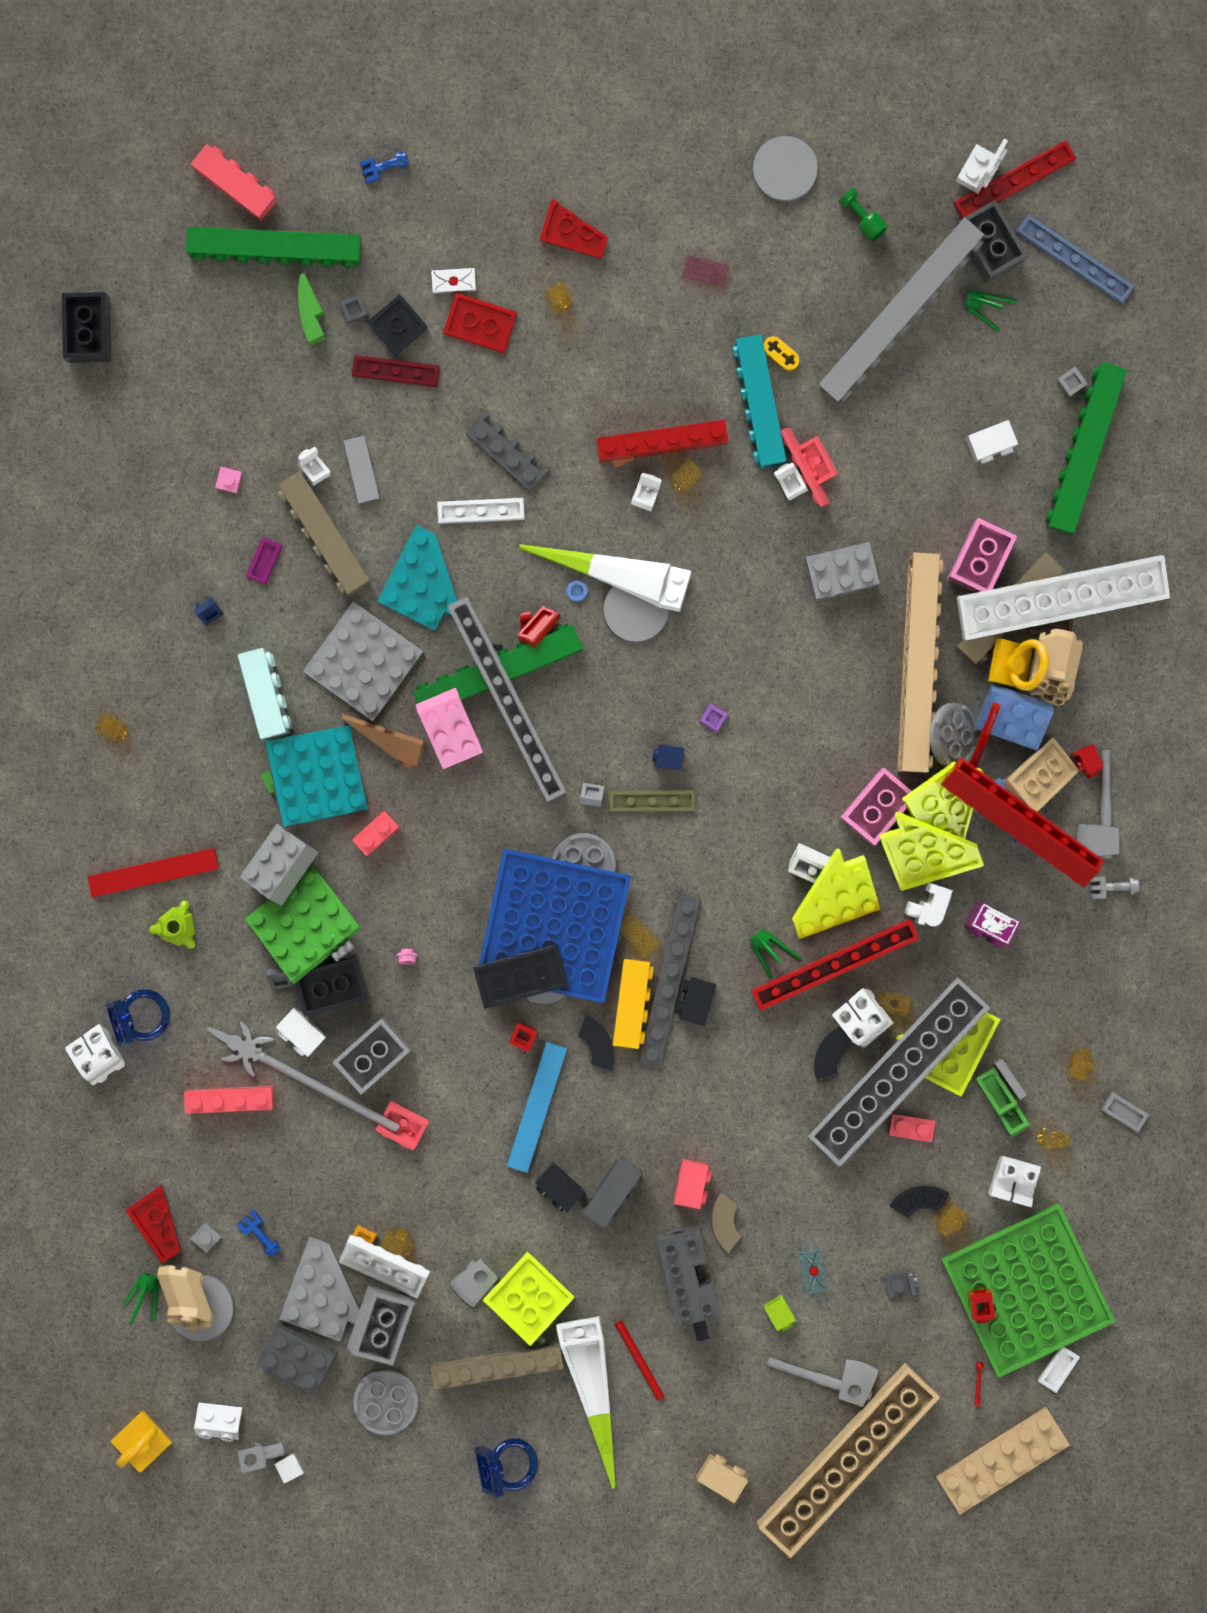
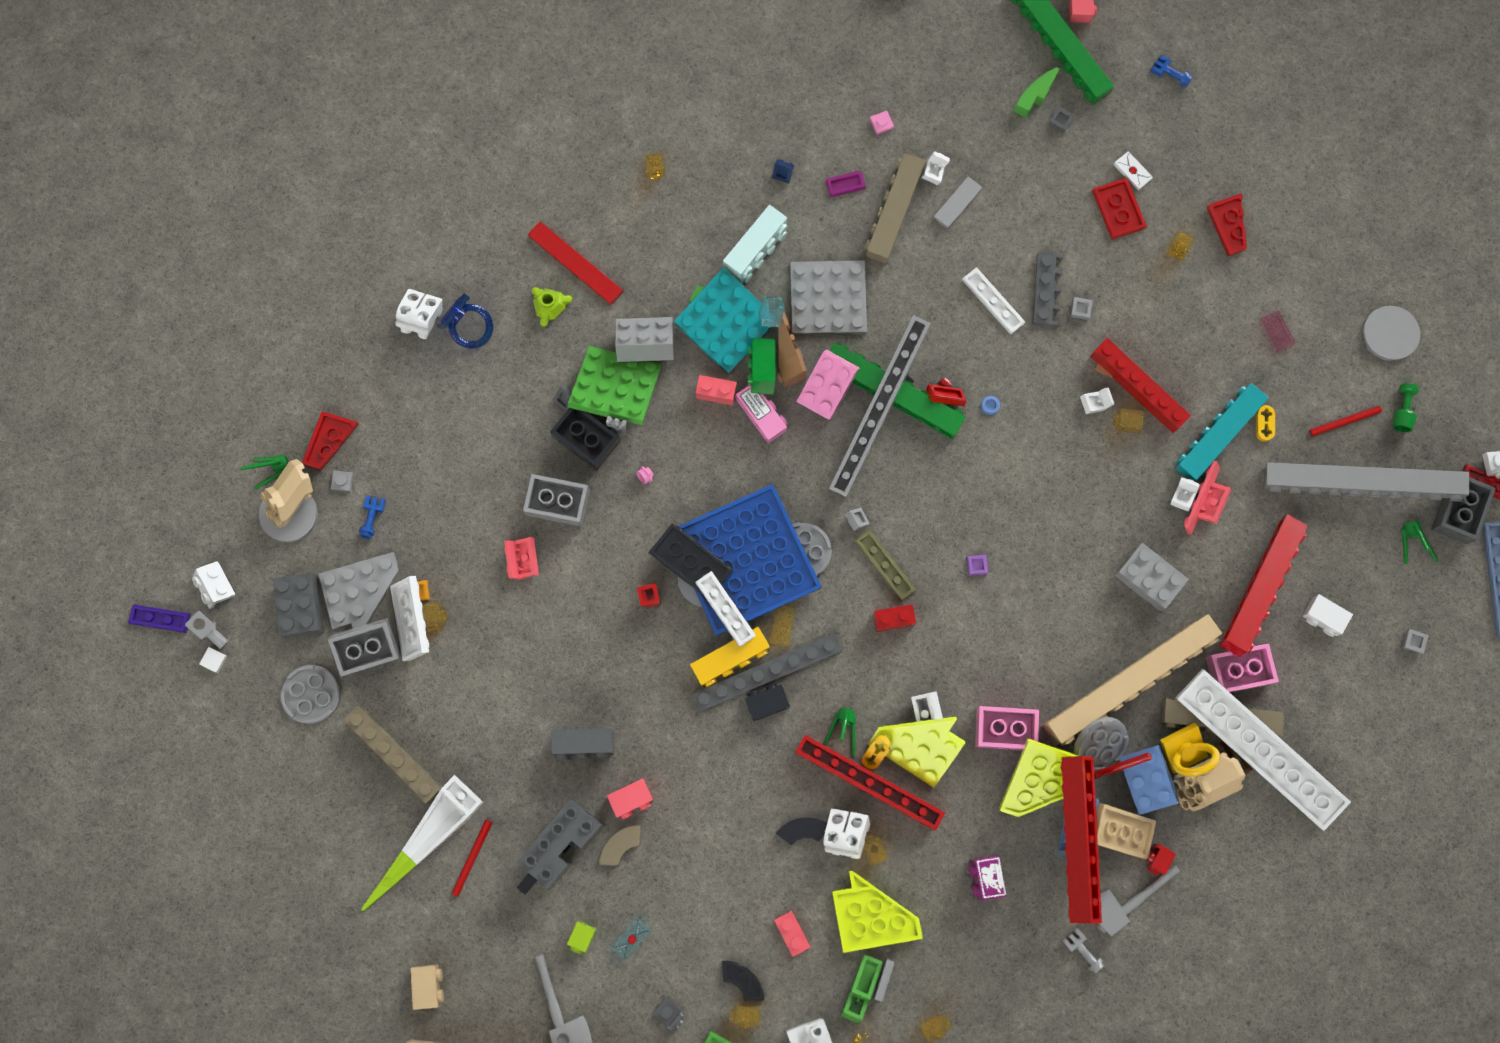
camera: 55 degrees right, 10 degrees down
(140, 1442) = (159, 541): yellow tile -> none
(214, 1491) = (159, 618): none -> dark purple tile
(229, 1099) = (453, 425): coral brick -> none
(248, 1049) = (498, 414): light grey piece -> none
(300, 1032) = (536, 440): white brick -> none
(341, 729) = (771, 311): none -> clear light blue brick
(386, 775) = (761, 366): none -> green brick
(395, 371) = (1042, 177): dark red tile -> none
(397, 325) = (1074, 155): black plate -> none
(420, 581) = (912, 294): teal wing -> none
(428, 806) = (762, 414): none -> bright pink brick
(475, 1282) = (445, 695): light grey piece -> none
(492, 1472) = (312, 807): clear blue tile -> none
(528, 1298) = (459, 740): neon yellow plate -> none
(537, 1107) = (604, 645): dark azure tile -> none
(549, 436) = (1081, 308): none -> light grey plate
(559, 1187) = (558, 703): black brick -> none
(587, 978) = (725, 609): none -> white tile
(600, 1043) = (684, 655): black tile -> none
(632, 616) = (1010, 454): light grey tile -> none
(647, 580) = (1037, 448): white plate -> none
(668, 757) = (925, 553): dark blue brick -> none
(706, 830) = (894, 618): none -> red brick
(816, 936) = (872, 750): none -> yellow beam
(833, 278) = (1345, 421): none -> red bar
(899, 1072) = (827, 890): light grey brick -> none
(924, 479) = (1263, 586): none -> brick
(926, 853) = (1002, 788): neon yellow wing -> none
(934, 909) = (961, 825): white hips -> none
(1086, 448) = (1378, 687): green brick -> none

